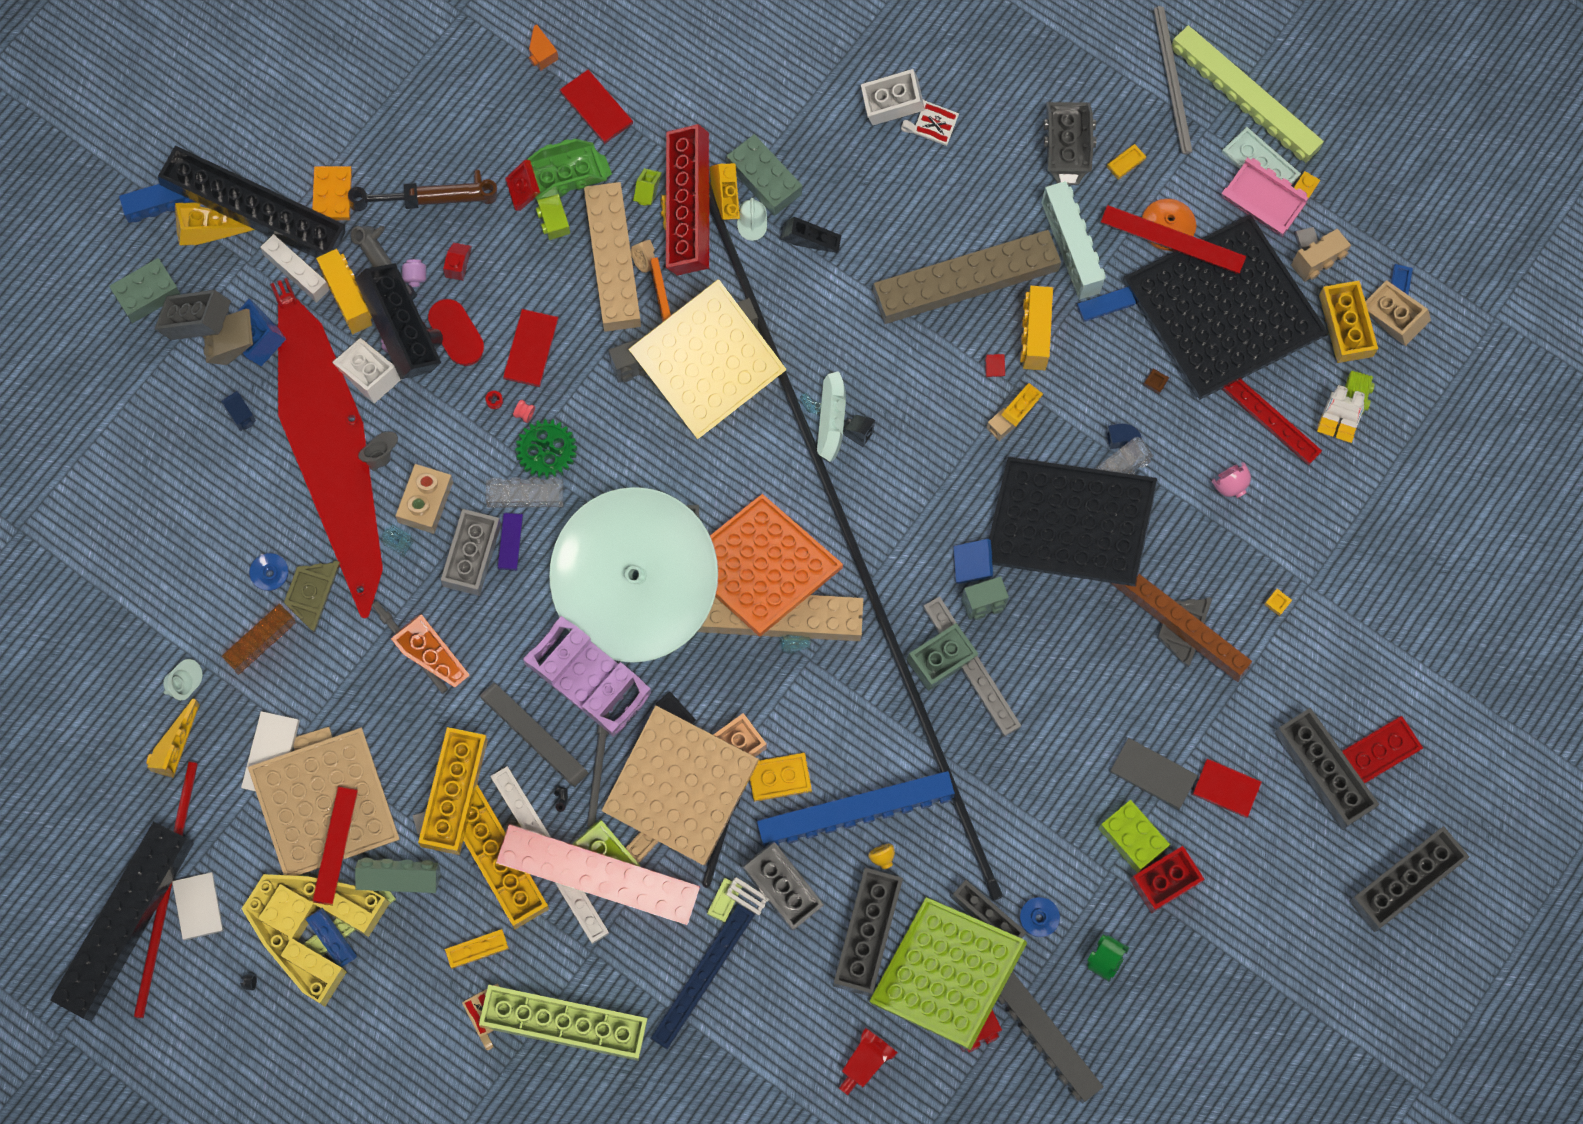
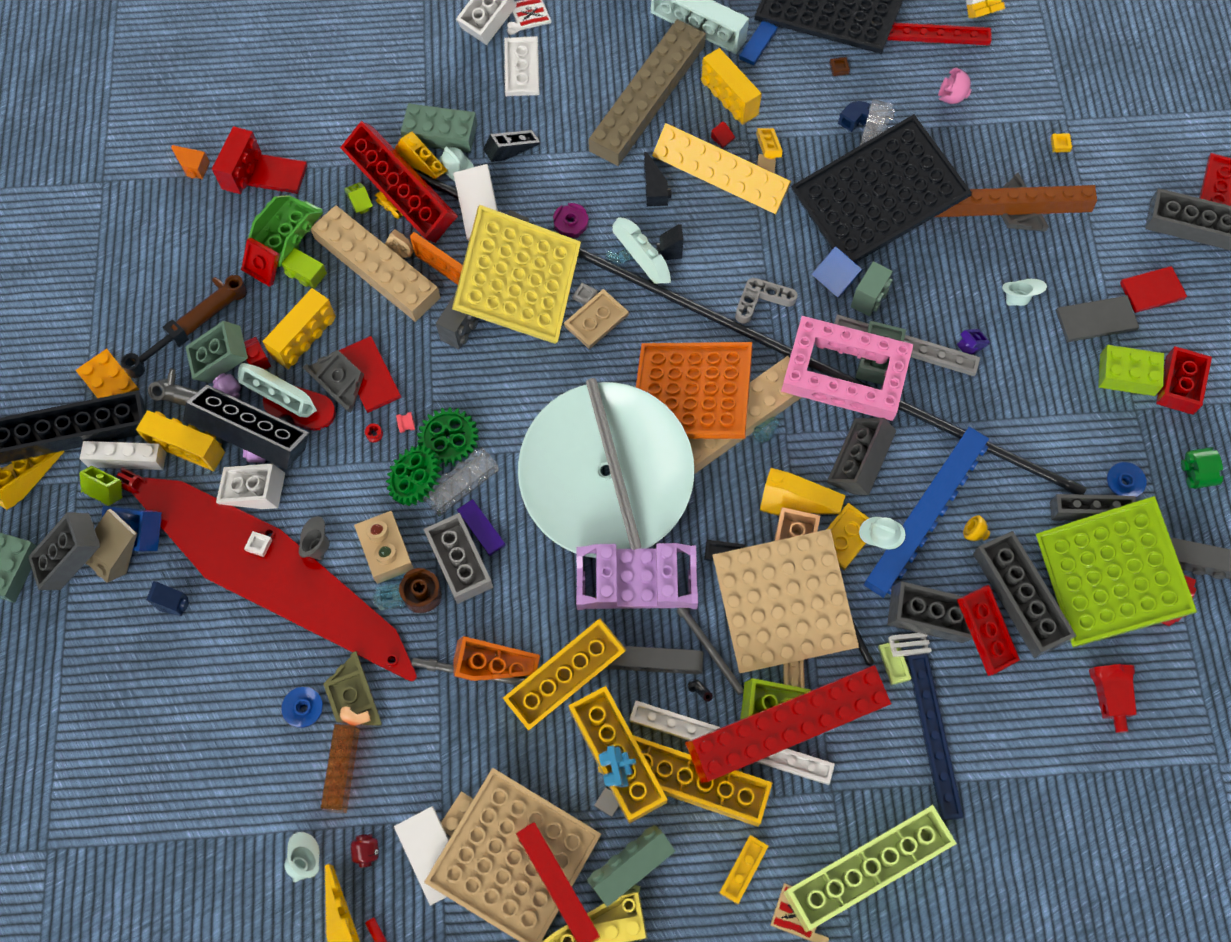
camera: 35 degrees left, 5 degrees down
(228, 711) = (364, 850): none -> dark red head
(259, 280) = (100, 485): none -> lime brick
(296, 611) = (352, 718): none -> light nougat arm
(336, 421) = (258, 544): none -> white plate
(426, 239) = (216, 352): none -> sand green brick
(427, 564) = (428, 598): none -> reddish brown brick
(442, 798) = (620, 766): none -> dark azure hips
(447, 306) = (276, 390): none -> light aqua brick
(469, 702) = (564, 674): none -> yellow brick
(492, 460) = (414, 475): none -> green gear
(503, 332) = (337, 377): none -> dark grey wing
(506, 268) = (299, 328): none -> yellow brick
(574, 80) = (237, 160): none -> red brick
(641, 574) = (613, 463): none -> light grey axle
(740, 262) = (474, 189): none -> white tile
(745, 444) = (596, 319): none -> tan plate
(755, 416) = (584, 294): none -> light grey tile
(769, 716) = (798, 494): none -> yellow wedge
(798, 352) = (570, 211): none -> magenta plate
(804, 796) = (882, 532): none -> light aqua piece
(812, 934) = (988, 630): none -> red tile
(850, 725) = (862, 455): none -> dark grey slope
(884, 168) = (521, 66): none -> white tile
(892, 526) = (756, 293): none -> light grey beam
(894, 369) = (656, 184): none -> black slope
(894, 696) = (843, 393): none -> bright pink brick
(962, 395) = (721, 168): none -> yellow plate
(1030, 708) = (972, 341): none -> dark purple slope
(1111, 700) = (1021, 291): none -> light aqua piece

